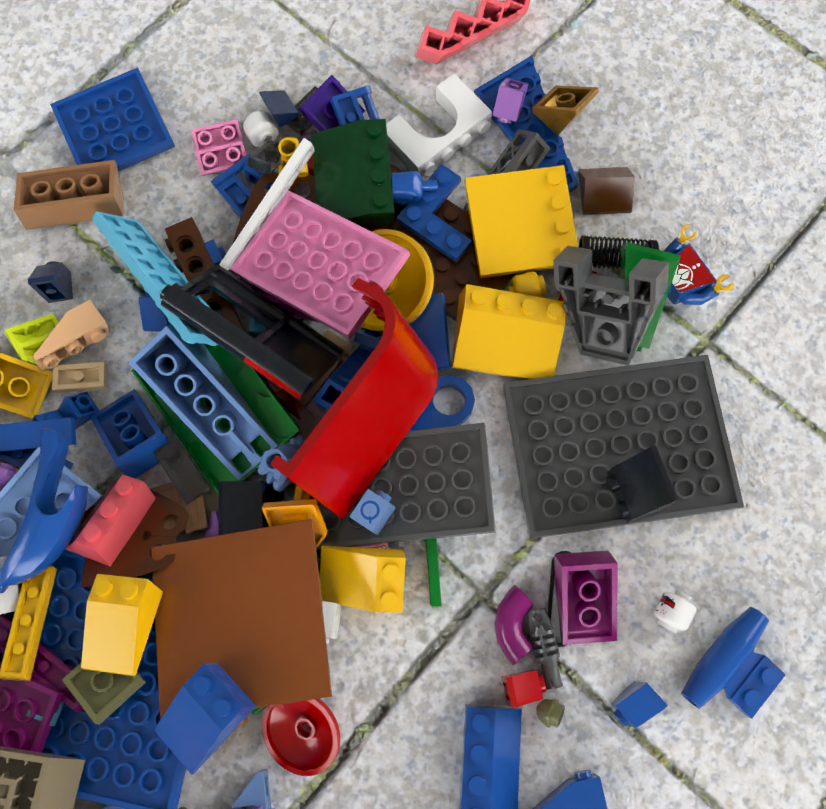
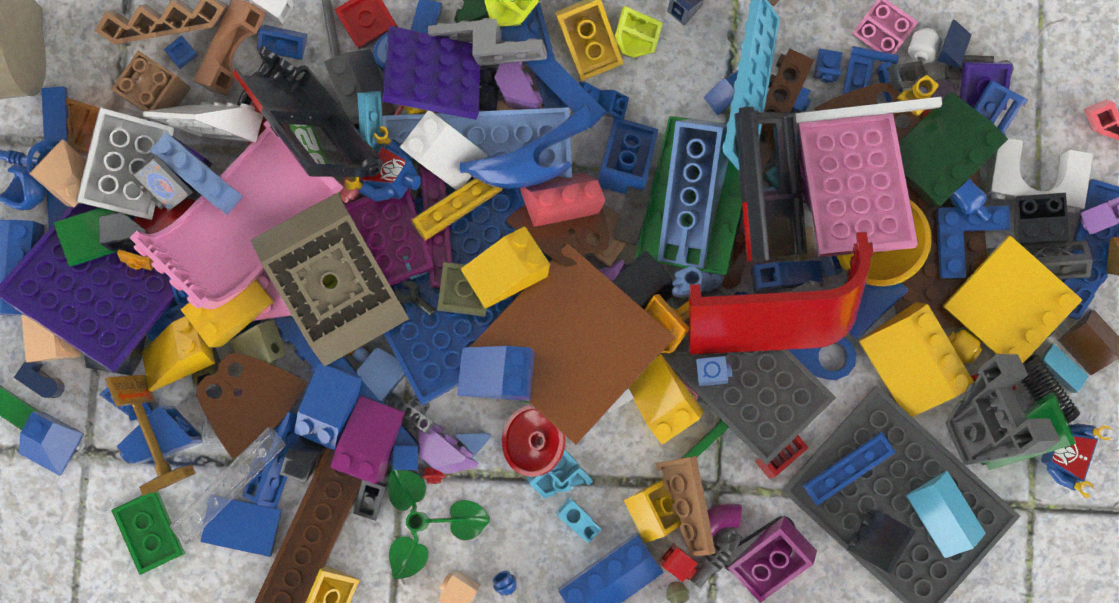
camera: 50 degrees right, 10 degrees up
(72, 737) = (415, 298): none -> pearl dark grey bar
(73, 333) = (666, 53): light nougat slope -> none
(80, 377) = (635, 85): tan plate -> none
(209, 213) = (828, 65): none -> blue bracket
(357, 733) = (561, 478): none -> medium azure slope
(410, 751) = (578, 520): none -> medium azure leg
(459, 666) = (653, 512): none -> yellow slope
(463, 625) = (686, 490): none -> medium nougat wing
(472, 147) = (1041, 219): none -> black slope
(504, 528) = (770, 471): none -> red slope
(556, 464) = (848, 468): none -> blue tile
(610, 226) = (1064, 369): none -> medium azure slope
(661, 414) = (946, 515): none -> medium azure slope

